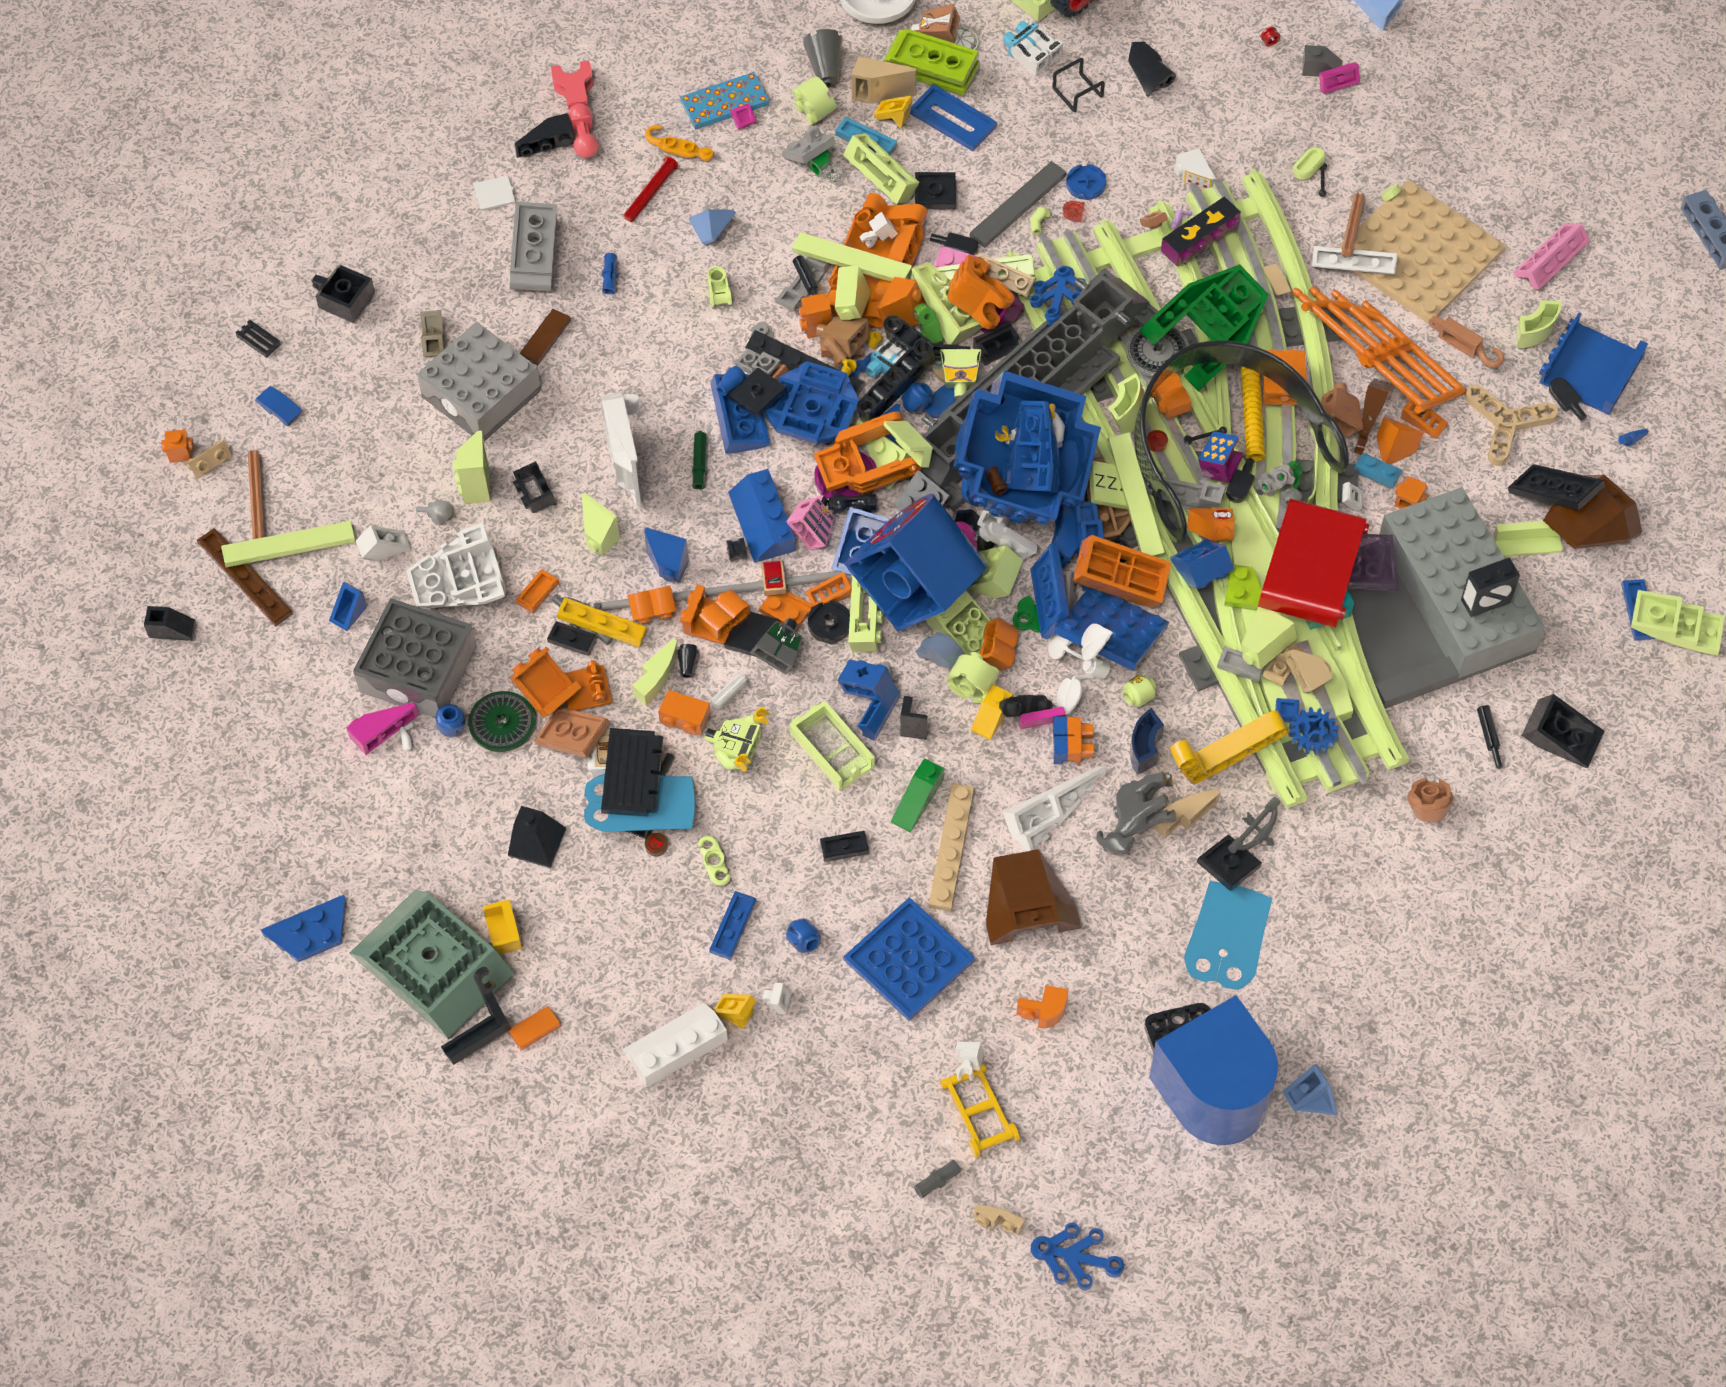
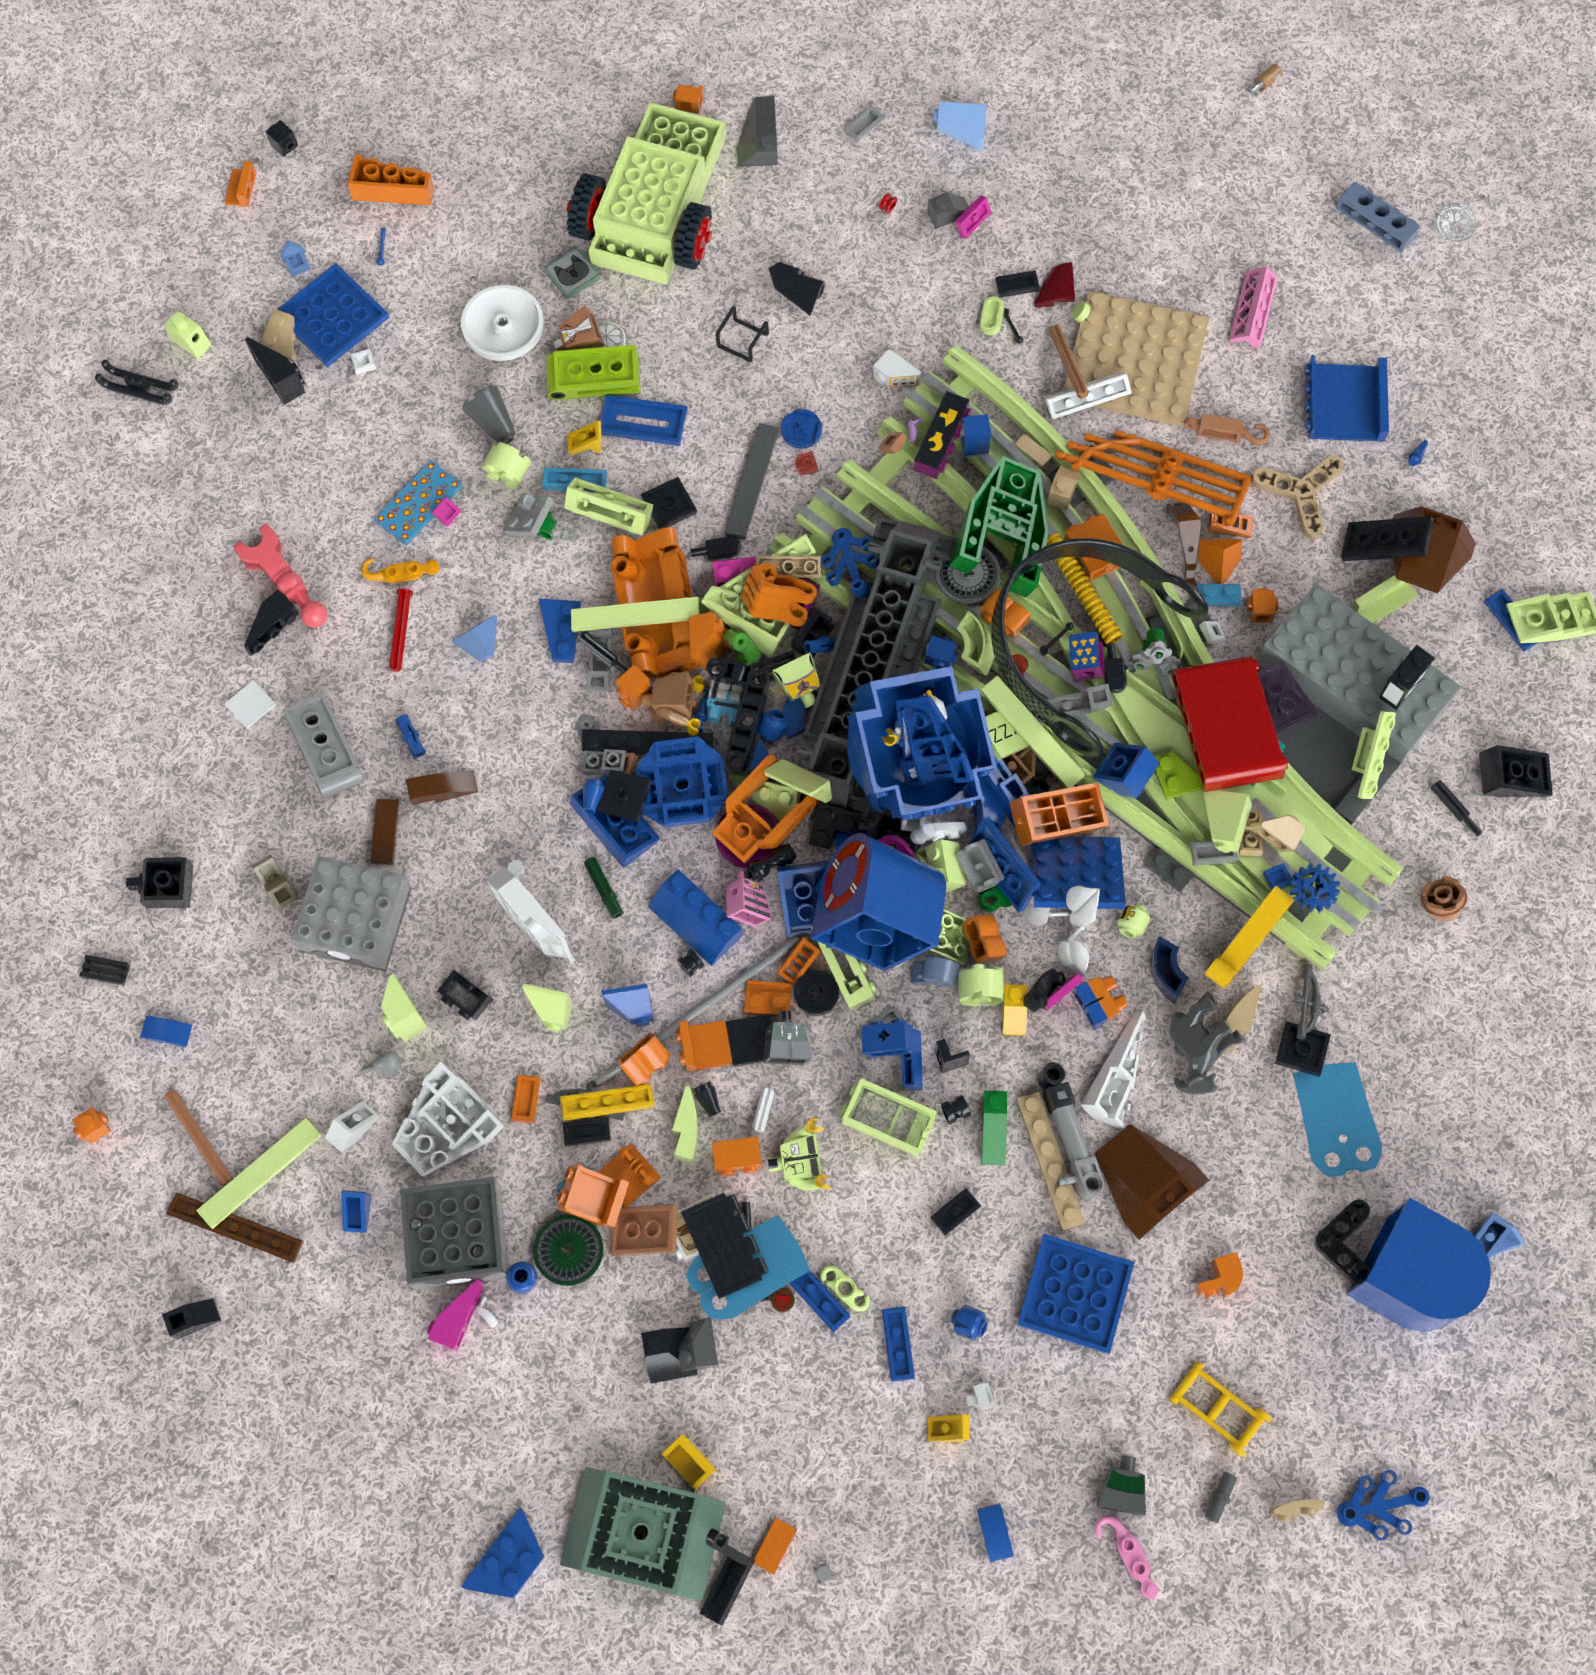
camera: 25 degrees left, 10 degrees up
(209, 459) = (133, 1114): tan hinge -> none
(561, 845) = (698, 1347): none -> dark grey slope
(562, 1069) = (823, 1573): none -> light grey piece
(610, 322) = (441, 786): none -> reddish brown slope
(676, 1044) = (912, 1491): white slope -> none
(687, 859) = (820, 1301): none -> blue tile
(718, 289) = (525, 704): yellowish green piece -> none
(724, 614) = (718, 1036): orange brick -> none
(725, 1109) = (995, 1532): none -> blue slope
(773, 577) = (740, 973): slope -> none
(780, 253) = (558, 629): none -> blue wing
(831, 1185) = (1131, 1554): none -> bright pink piece
(851, 293) = (659, 654): yellowish green slope -> none
(855, 1129) = (1124, 1489): none -> dark grey torso
(881, 80) = (560, 415): tan slope -> none
(881, 227) = (646, 569): white piece -> none
(892, 766) = (955, 1109): none -> black wheel
(970, 1057) = (1187, 1365): white piece -> none
(985, 806) = (1061, 1104): none -> light grey piece
(989, 350) = (823, 645): none -> blue pin
(998, 485) = (905, 785): reddish brown pin -> none
(1028, 584) = (979, 866): none -> light grey hinge
(1032, 47) = (677, 313): white hips -> none
(1036, 218) = (777, 488): yellowish green arm -> none
(1097, 400) = (941, 653): none -> blue brick
(1212, 523) = (1116, 725): orange slope -> none
(1228, 241) = (977, 435): none -> blue panel
(1283, 318) = (1063, 487): none -> tan slope
(1343, 409) = (1163, 551): nougat torso -> none
(1347, 148) = (1017, 284): none -> black tile
(1382, 165) = (1057, 286): none -> dark red slope
(1431, 646) = (1371, 753): none -> yellowish green bracket
(1538, 325) = (1284, 377): yellowish green brick -> none
(1566, 397) = (1341, 442): black piece -> none
(1678, 76) = (1266, 78): none -> medium nougat piece

